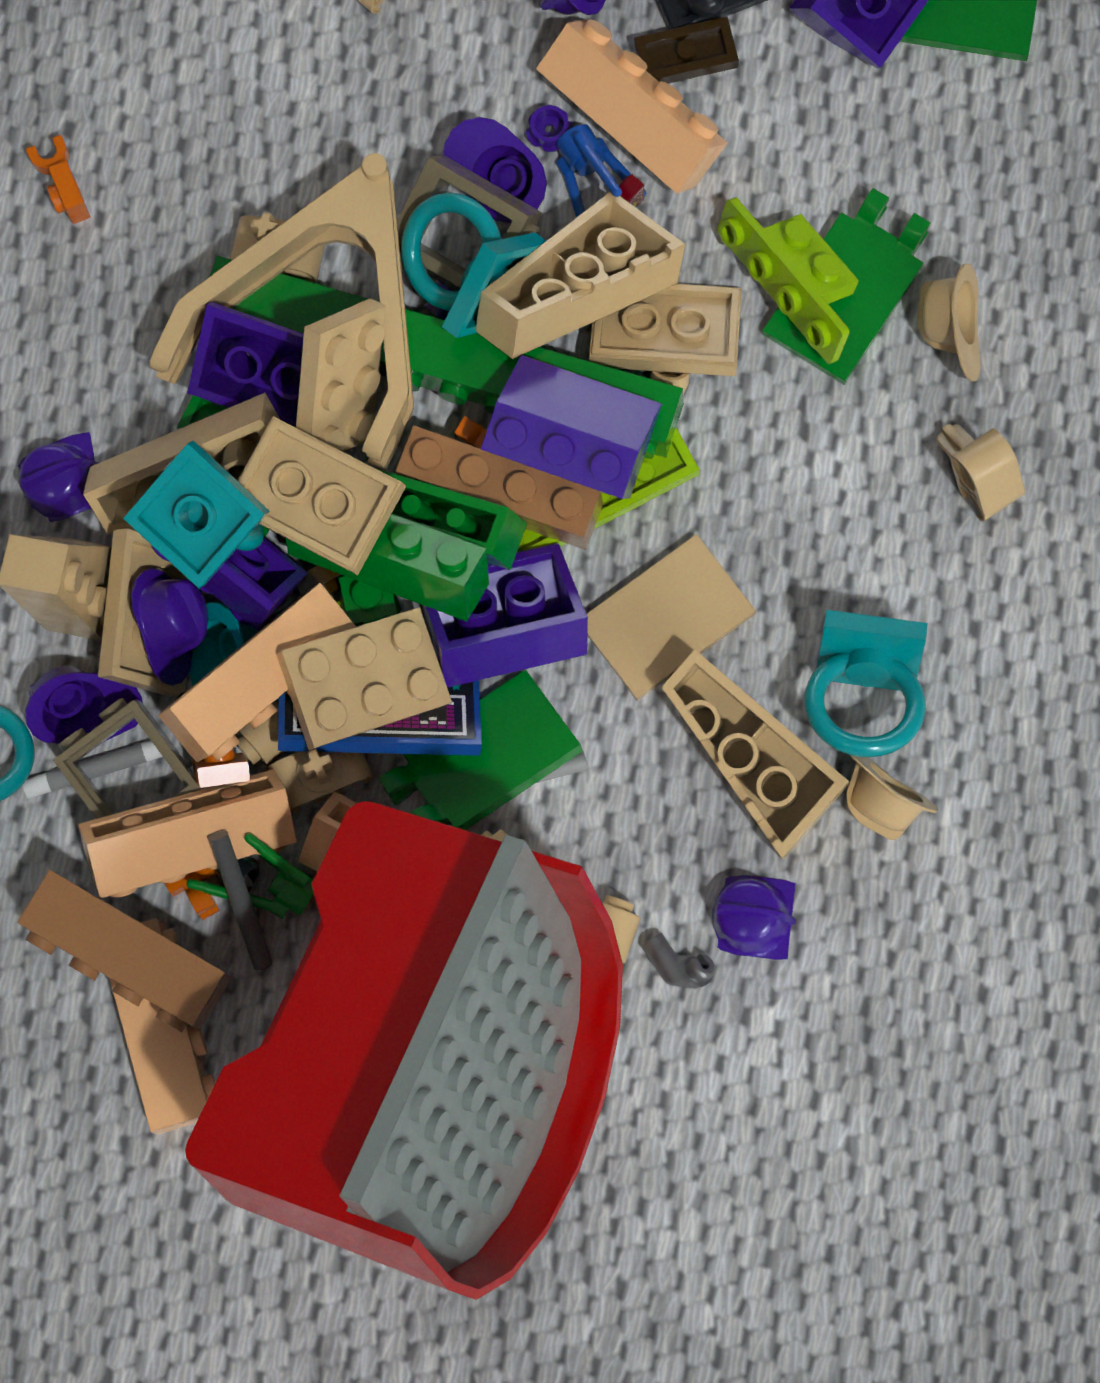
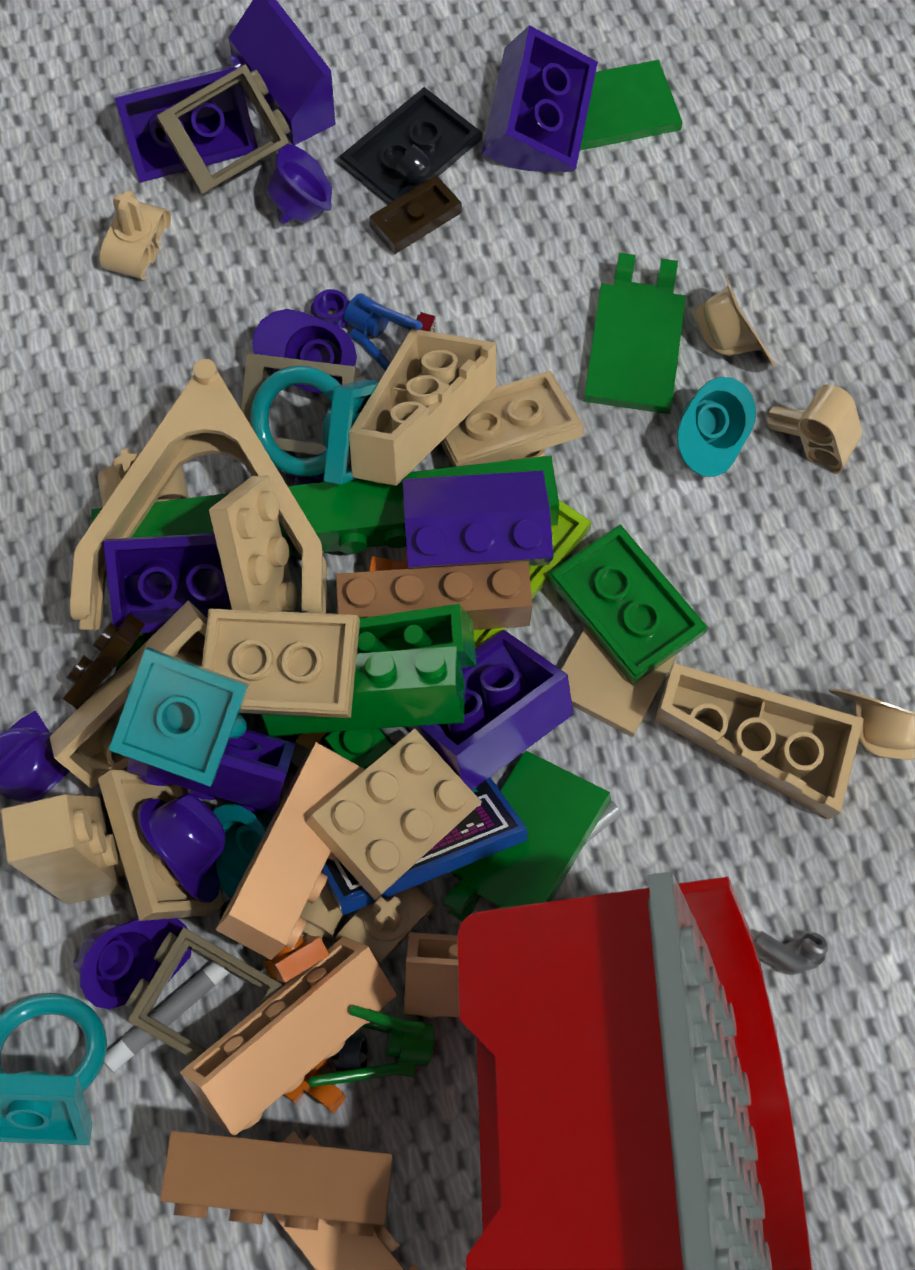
camera: 35 degrees left, 10 degrees down
(177, 408) = (111, 646): none -> dark brown plate
(240, 899) = (367, 1075): dark grey bar -> none
(632, 104) = (393, 263): light nougat brick -> none
(692, 567) = (626, 604): none -> green tile
(754, 916) = (830, 880): dark purple piece -> none
(795, 271) = (590, 338): lime bracket -> none
(868, 654) = (825, 606): teal tile -> none
(871, 423) = (716, 426): none -> teal piece

